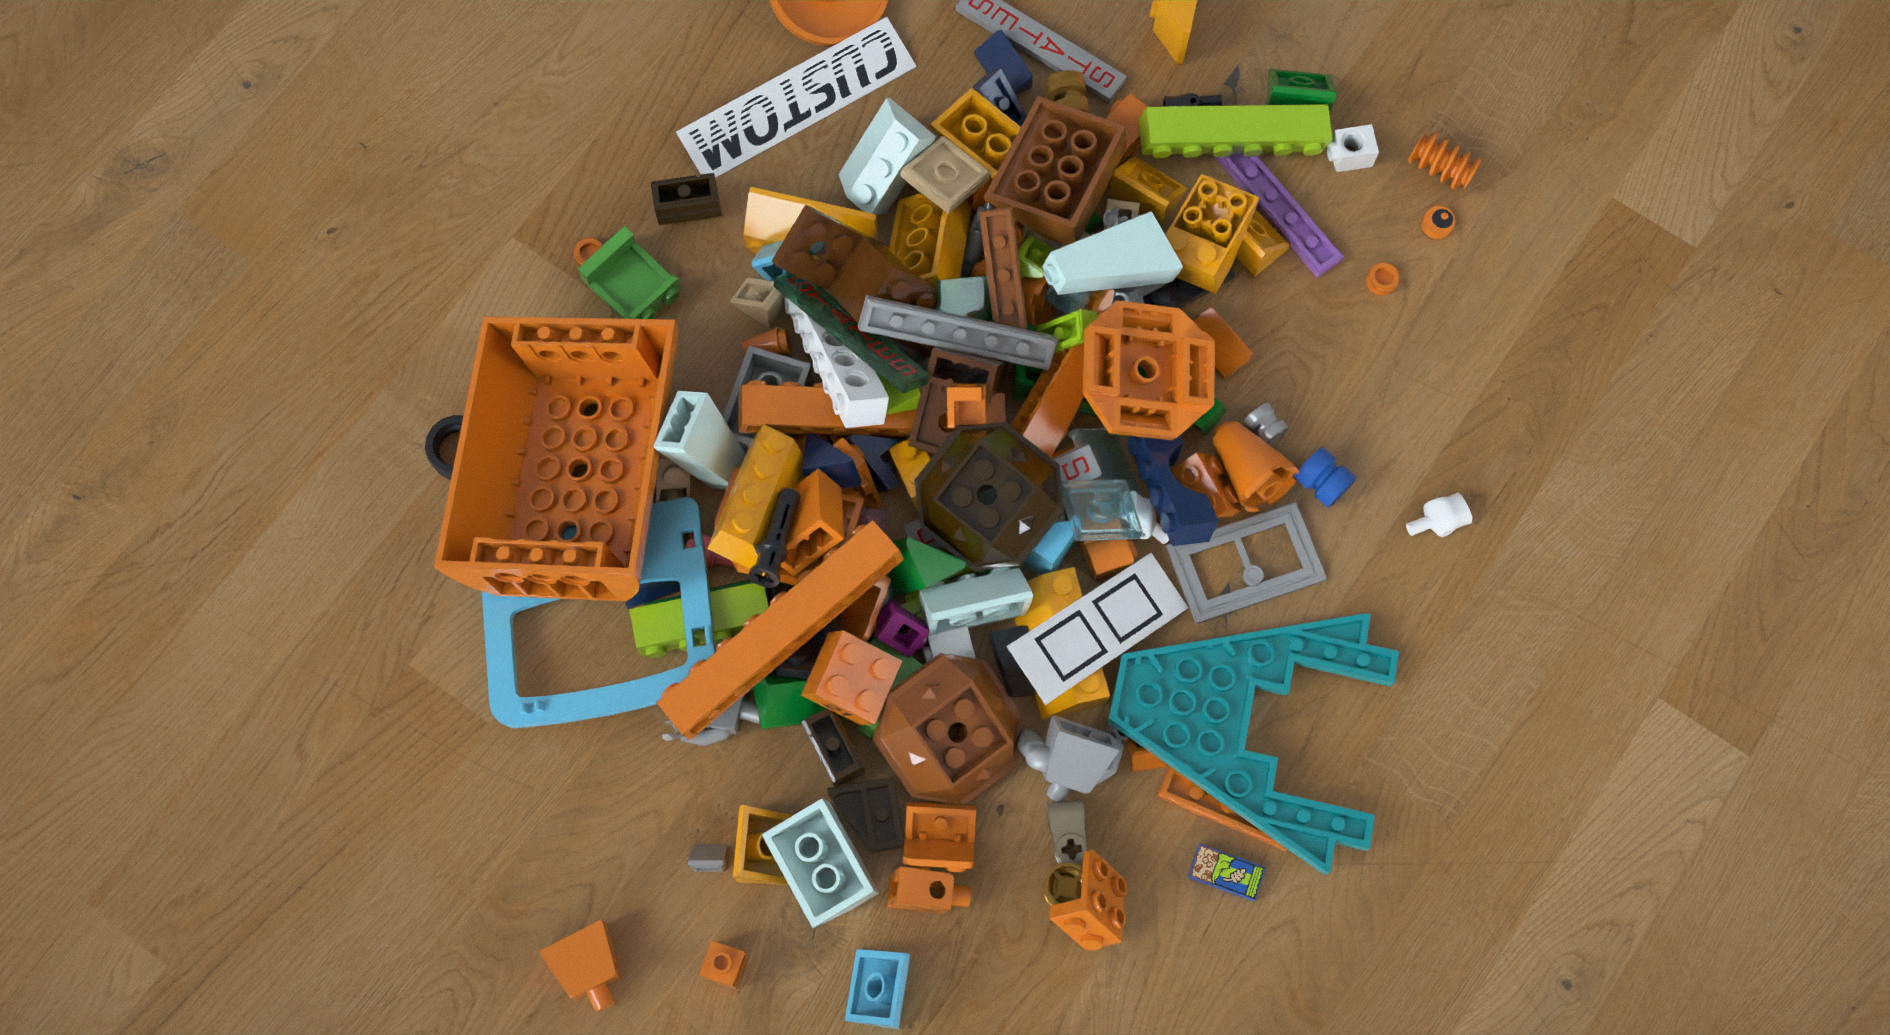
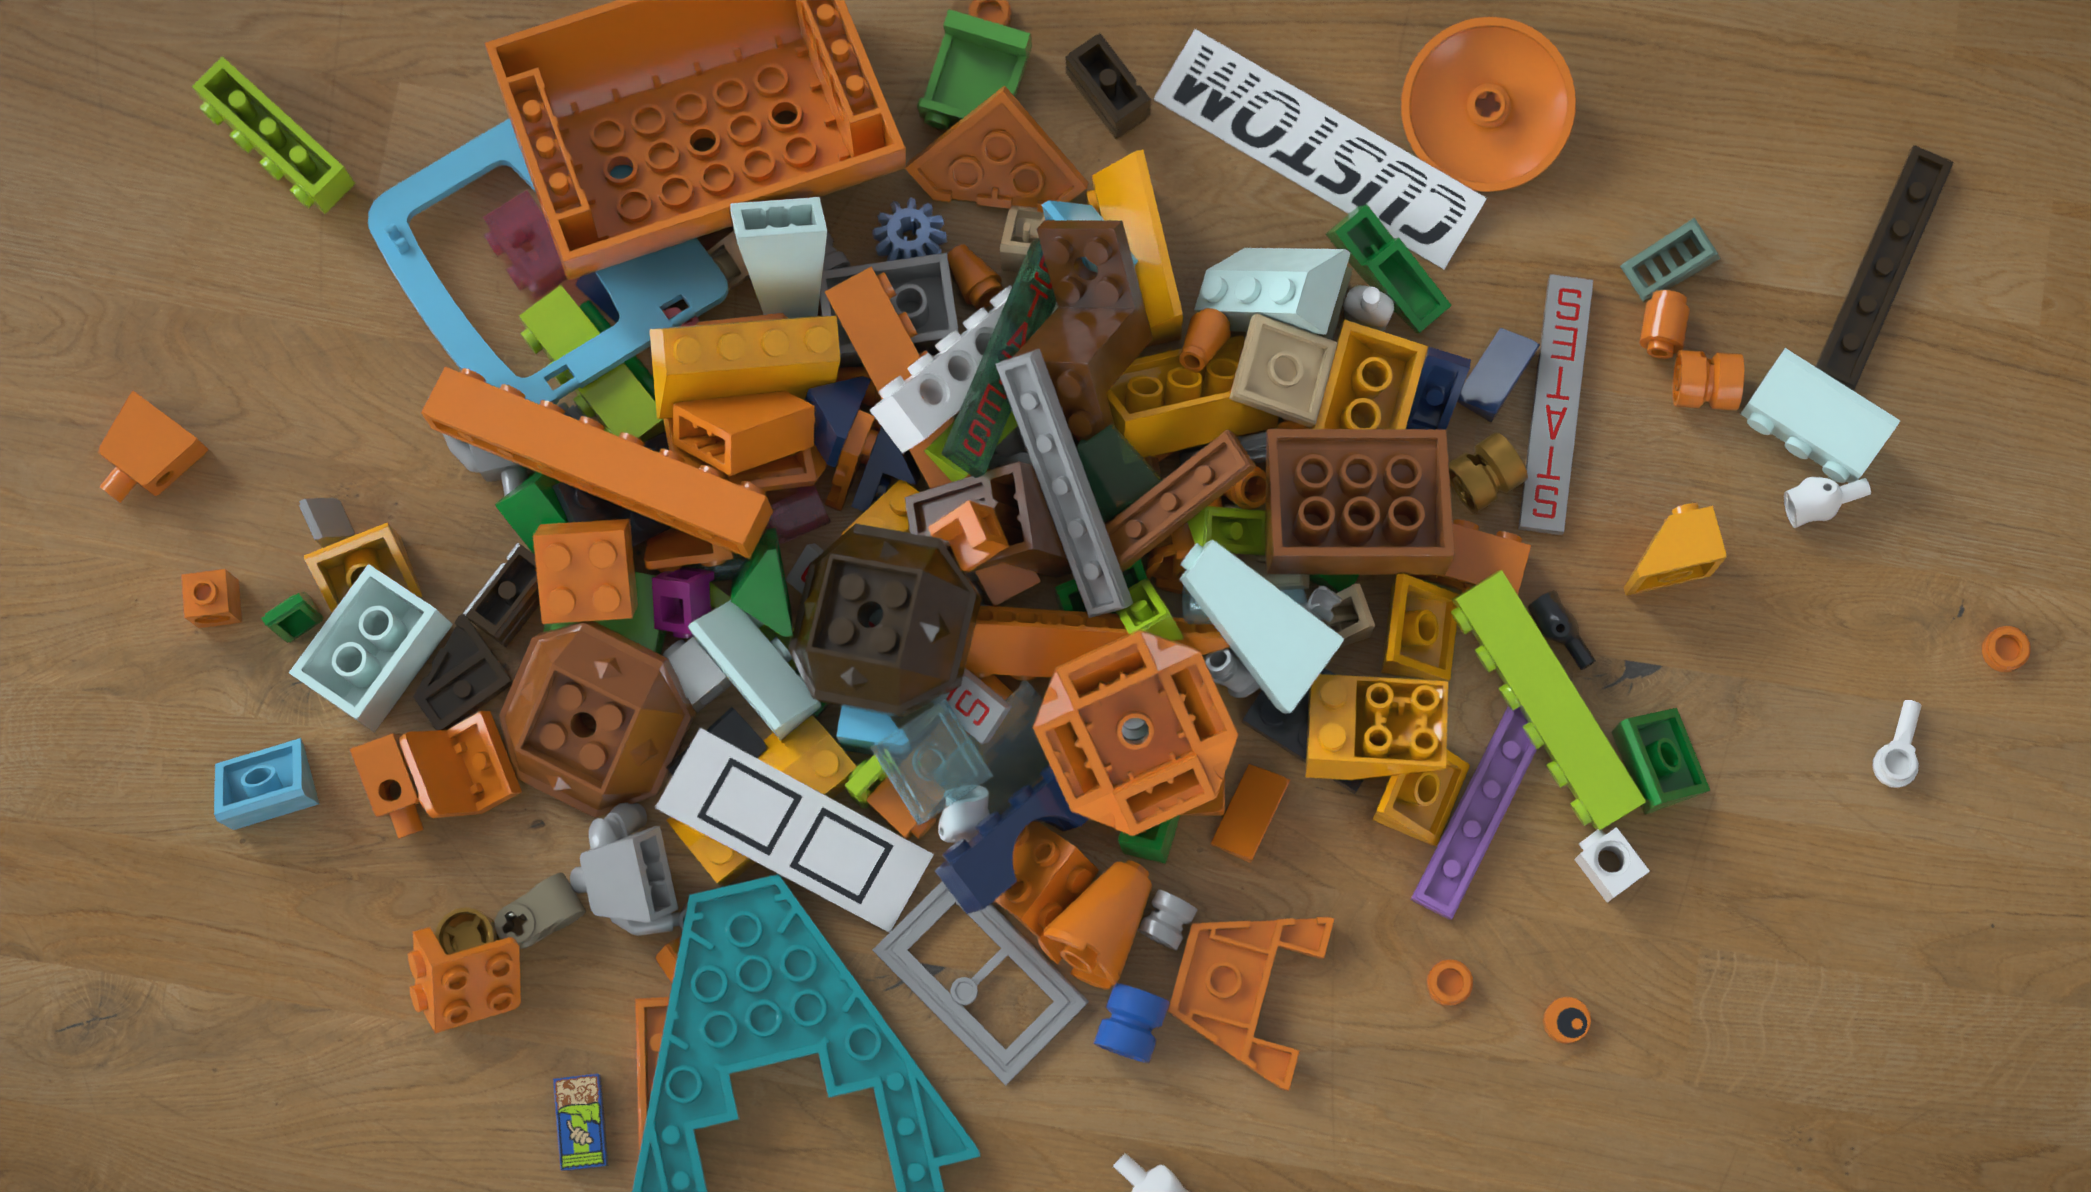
camera: 70 degrees right, 5 degrees up
(401, 764) = (274, 135): none -> lime brick
(567, 617) = (513, 226): none -> clear pink brick
(699, 287) = (997, 160): none -> orange plate
(706, 366) = (919, 221): none -> light blue gear
(765, 910) = (293, 617): none -> green slope
(772, 549) = (672, 397): black pin -> none
(894, 215) = (1204, 338): none -> orange cone
(908, 89) = (1389, 267): none -> green slope
(925, 110) = (1368, 307): none -> white piece
(1086, 564) = (865, 780): none -> lime plate
(1322, 408) = (1226, 982): none -> orange wing
(1445, 161) = (1654, 990): orange piece -> none

